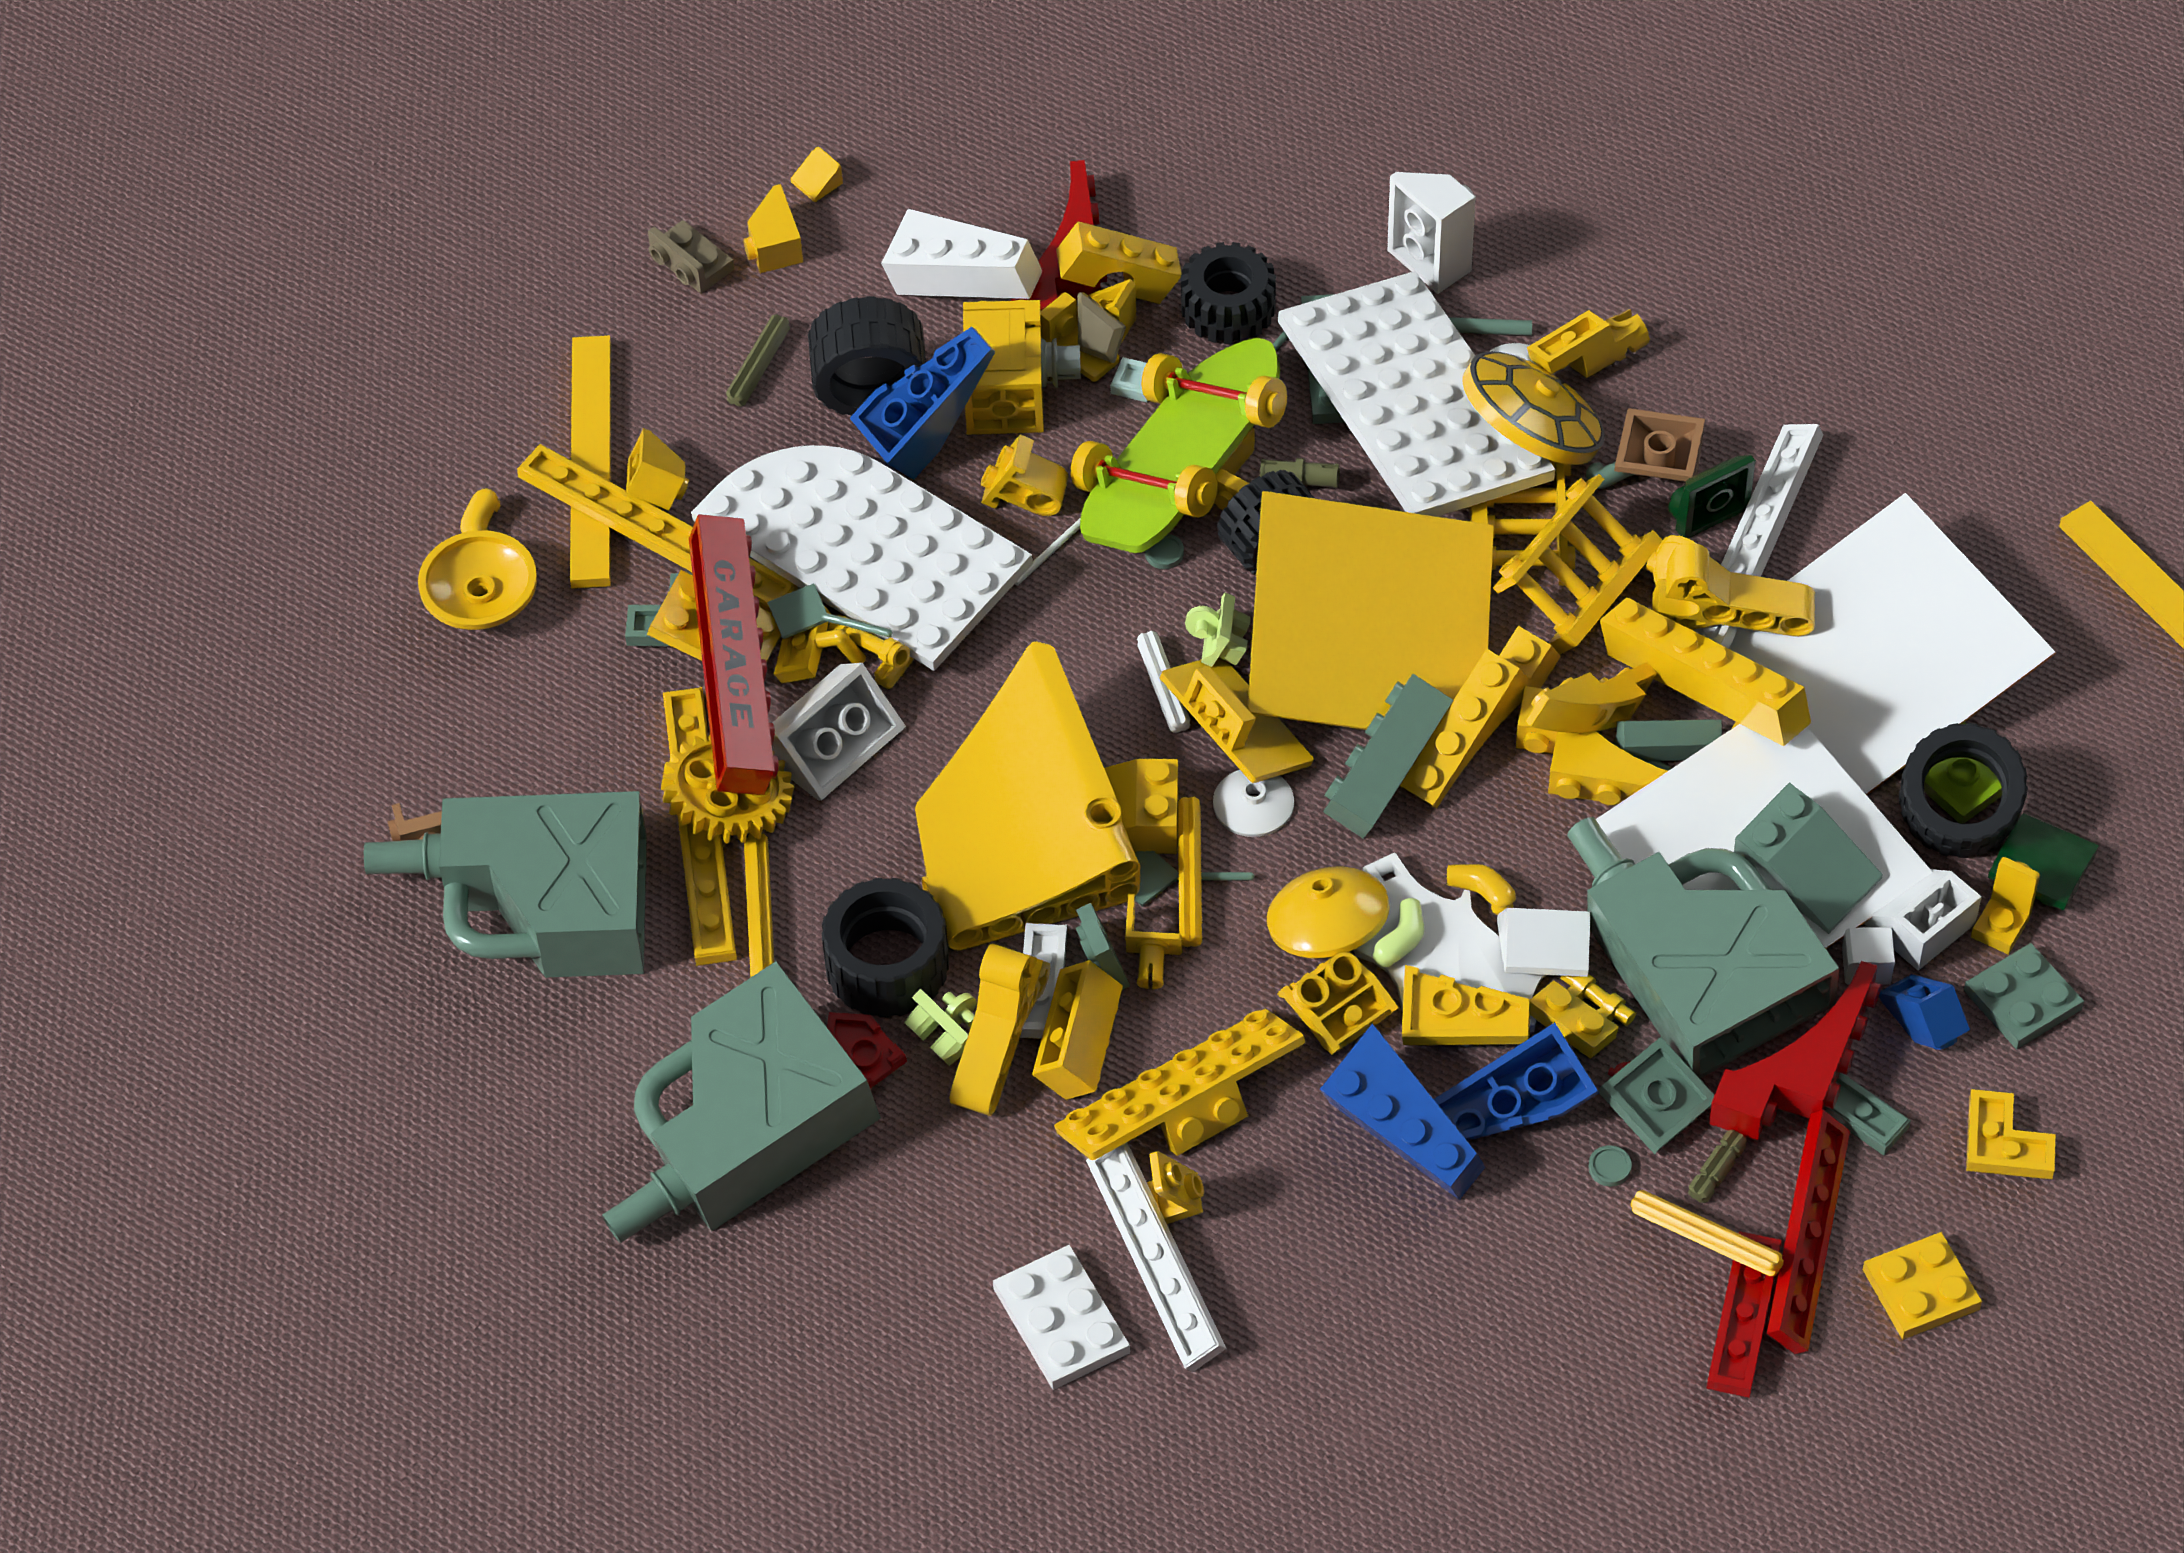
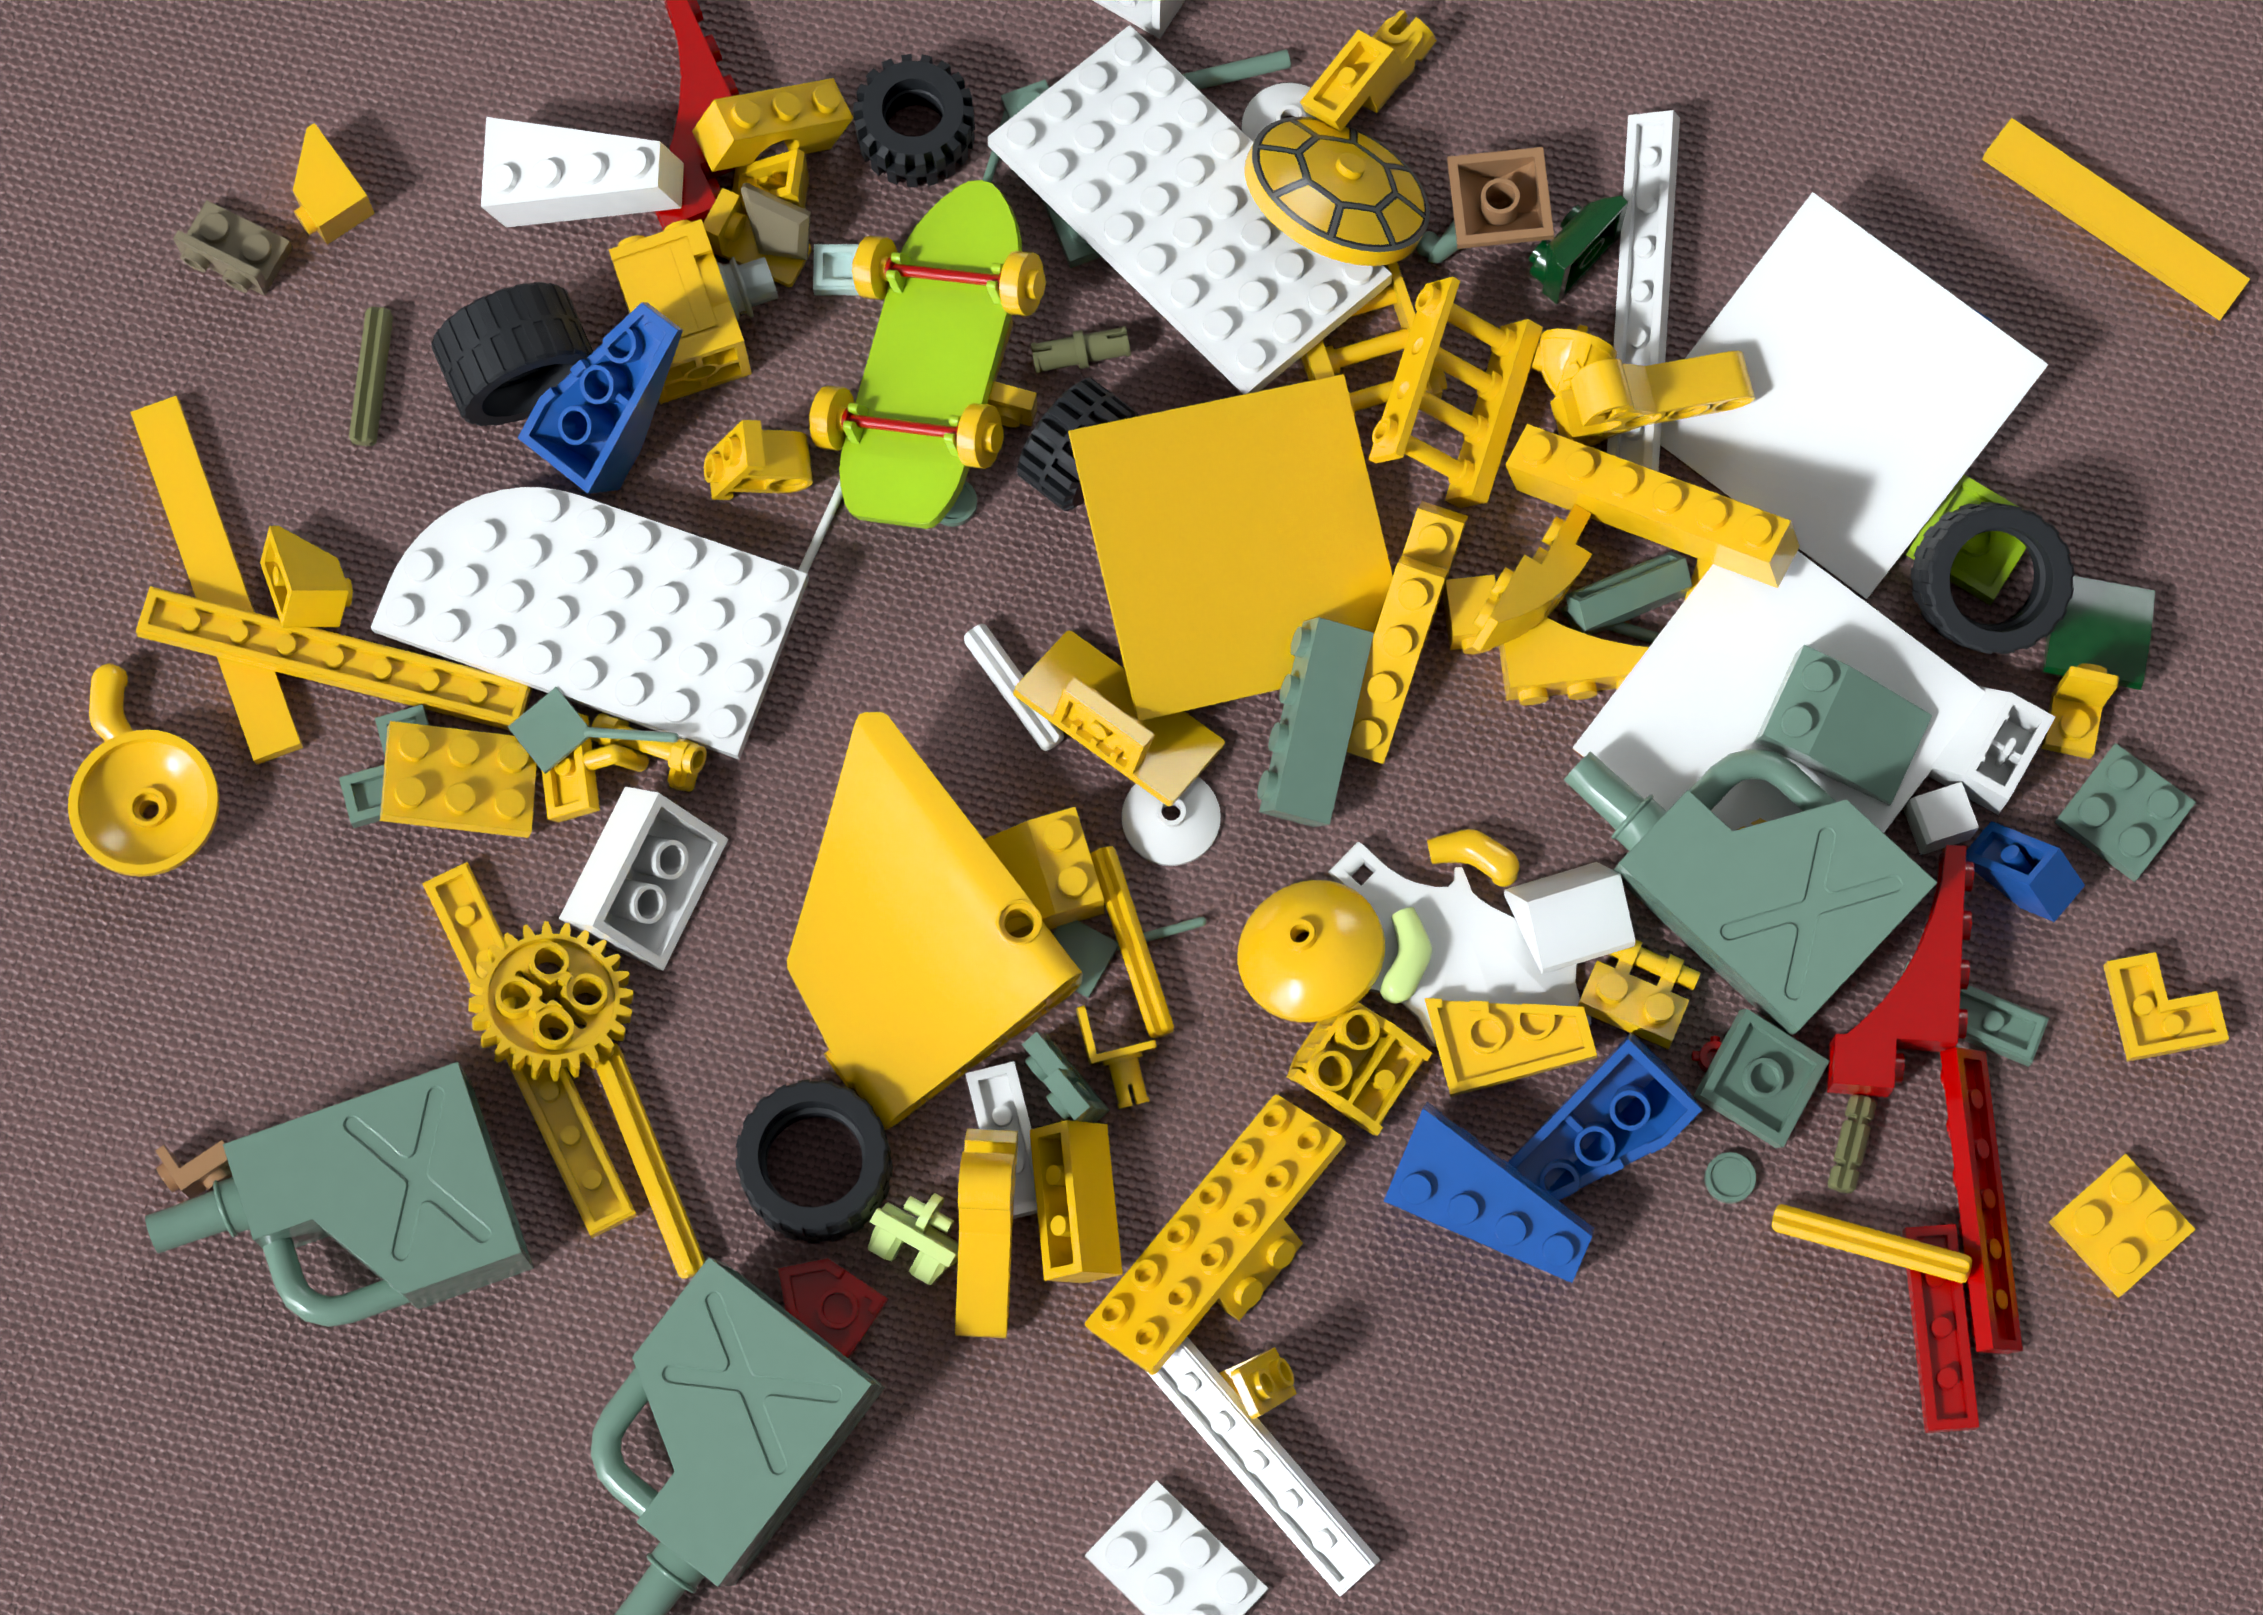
camera: 20 degrees left, 20 degrees up
(732, 655) = (498, 830): brick -> none
(818, 175) = (350, 86): yellow slope -> none
(1221, 631) = (1055, 605): yellowish green hips -> none

